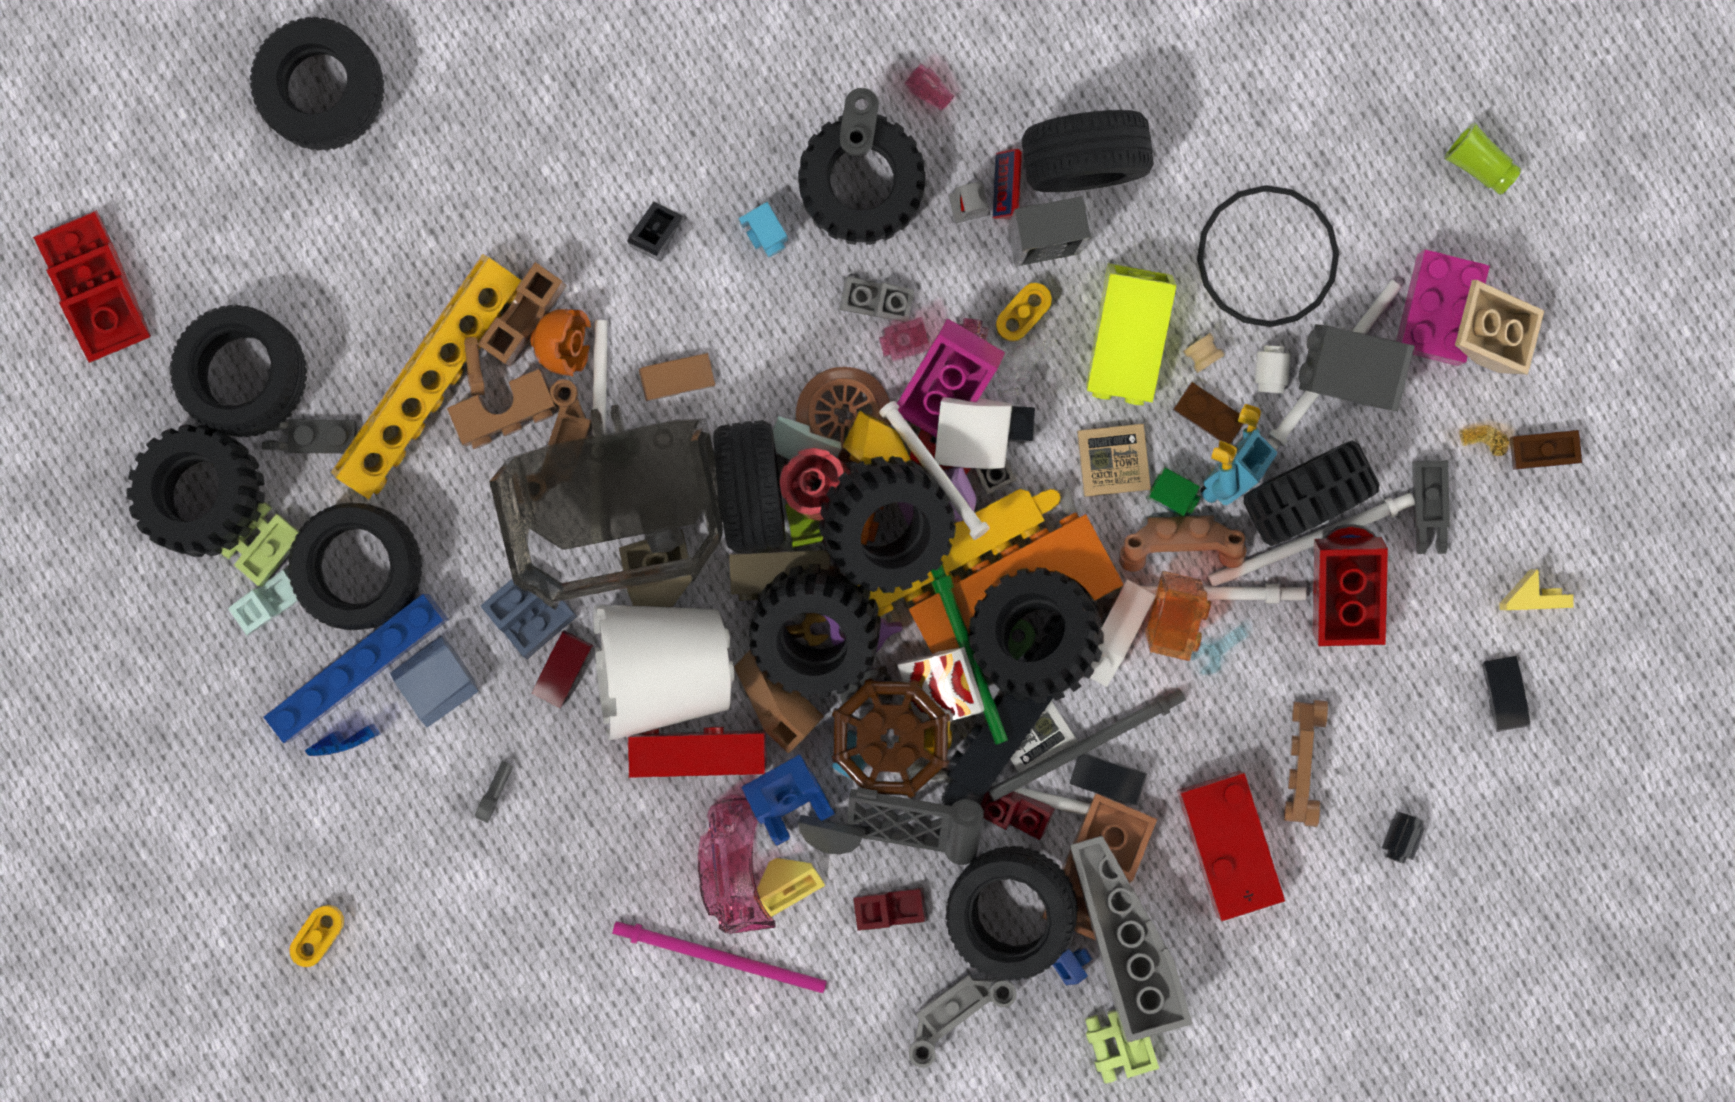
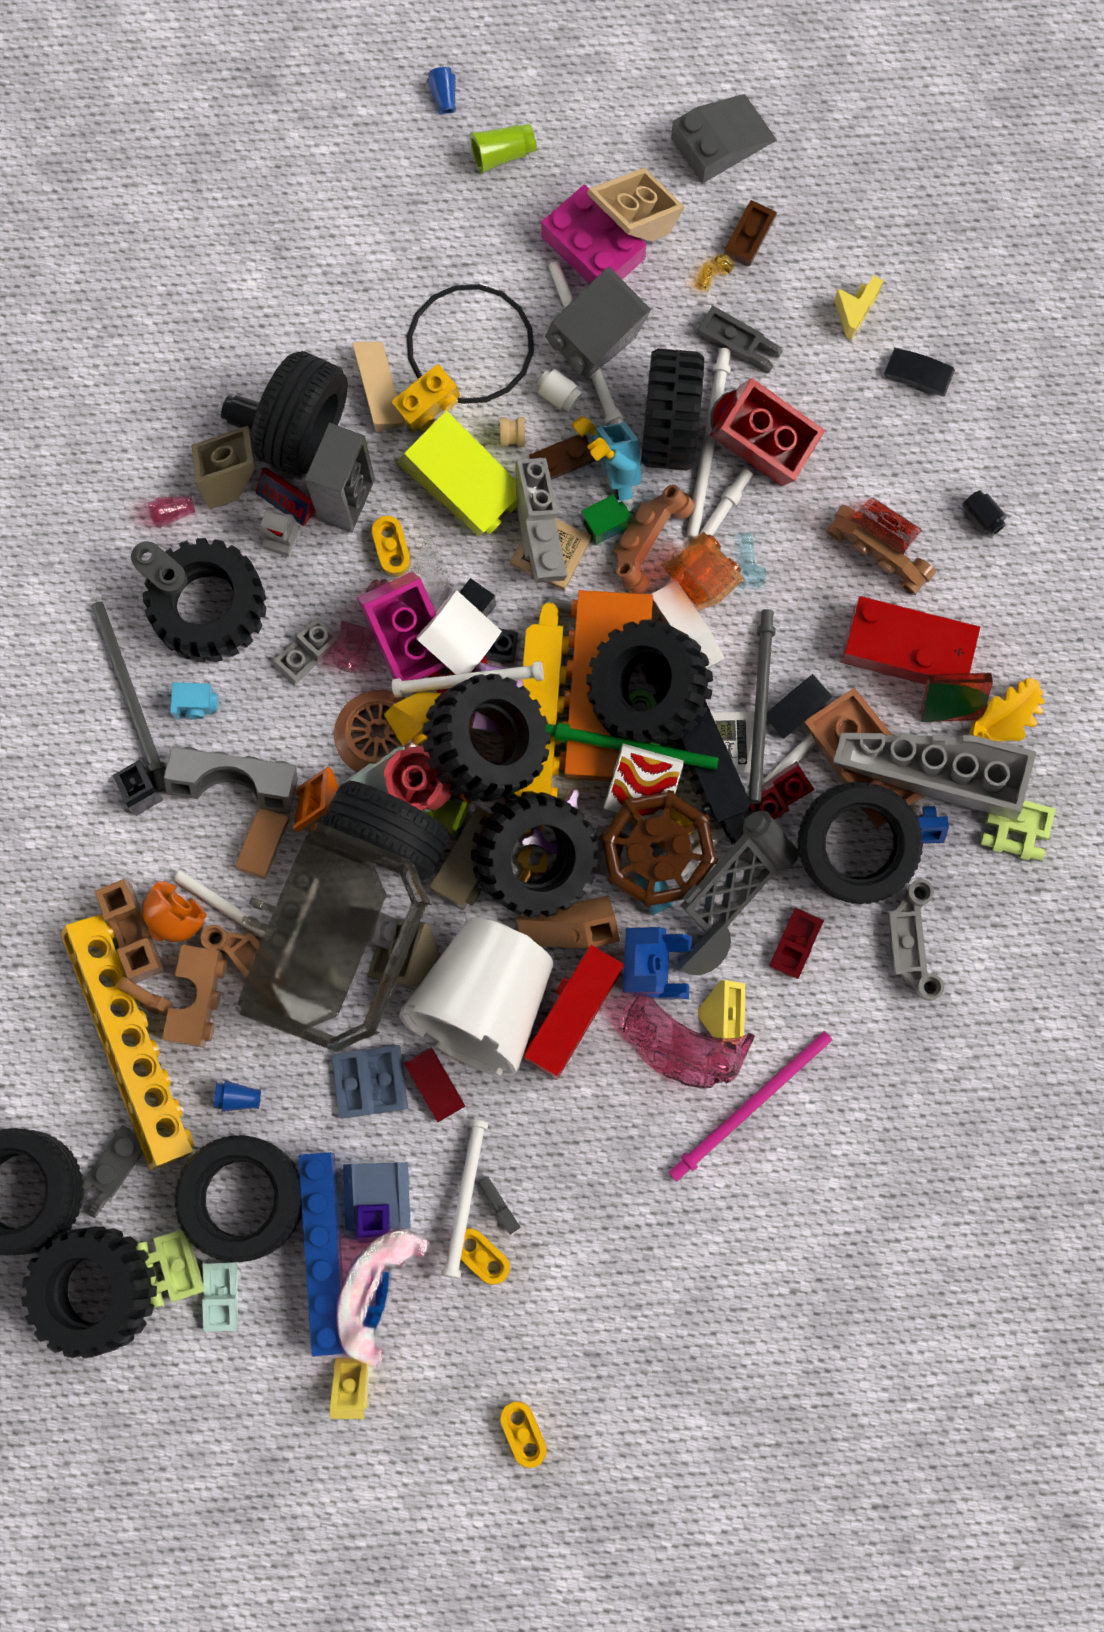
camera: 55 degrees left, 10 degrees down
(258, 764) = (349, 1389): none -> light yellow slope
(344, 722) = (360, 1287): none -> clear pink windscreen
(409, 694) = (372, 1222): none -> dark purple slope
(440, 502) = (233, 1096): none -> blue cone
(440, 804) = (482, 1256): none -> yellow plate
(479, 760) = (464, 1200): none -> white bar
(685, 235) = (156, 767): none -> dark grey bar
(700, 274) = (194, 771): none -> arch
(743, 401) = (315, 798): none -> orange slope
(999, 110) = (223, 466): none -> dark tan slope
(1062, 93) = (239, 411): none -> black brick
(1128, 434) = (537, 520): none -> light grey slope
(1171, 198) = (377, 384): none -> tan slope
(1182, 253) = (427, 398): none -> yellow bracket
(1205, 918) = (956, 697): none -> dark green tile
(1216, 974) = (1007, 717): none -> yellow plant
(1331, 756) = (887, 525): none -> clear red tile
(1506, 65) = (443, 85): none -> blue cone
(1629, 361) = (720, 135): none -> dark grey slope

